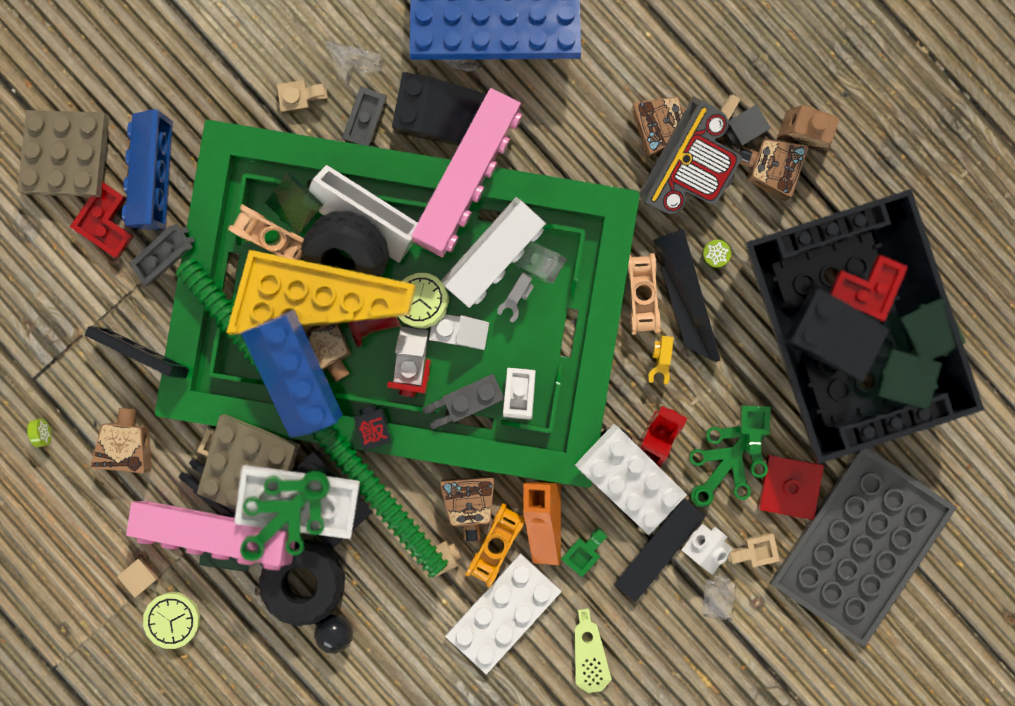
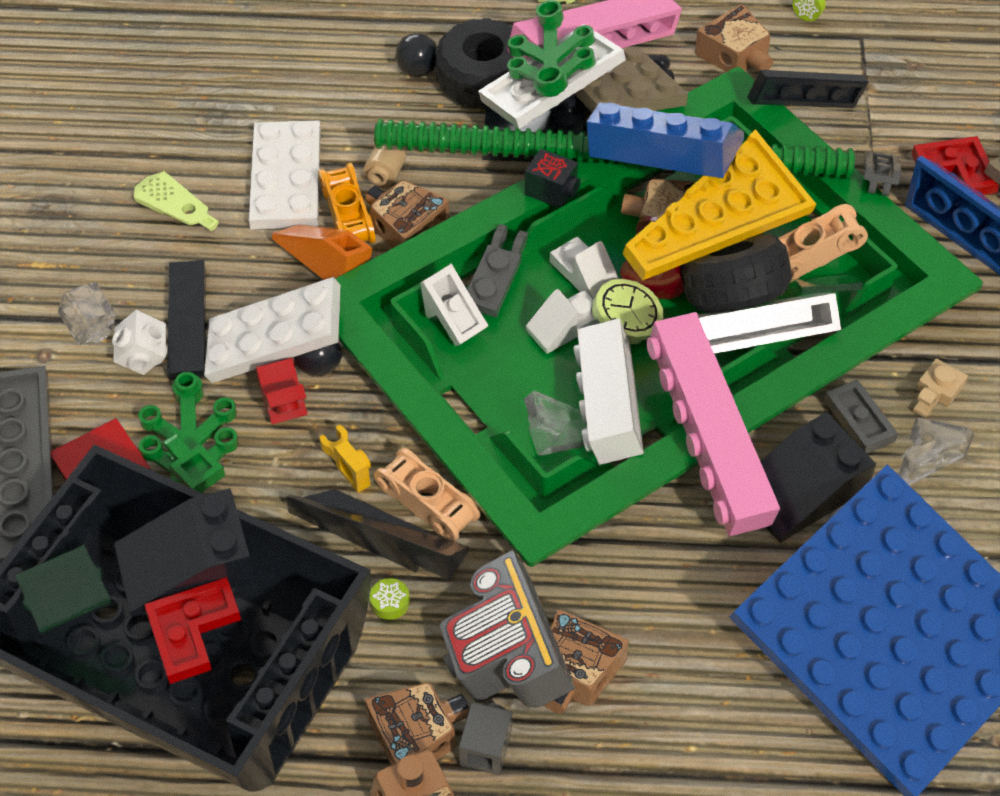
camera: 140 degrees right, 35 degrees down
(410, 390) = (551, 241): red bracket -> none
(520, 290) = (545, 377): light grey plate -> none
(582, 554) = (257, 258): green plate -> none
(730, 105) = (524, 734): tan tile -> none
(758, 550) = (86, 385): tan plate -> none
(930, 330) = (80, 659): clear green piece -> none

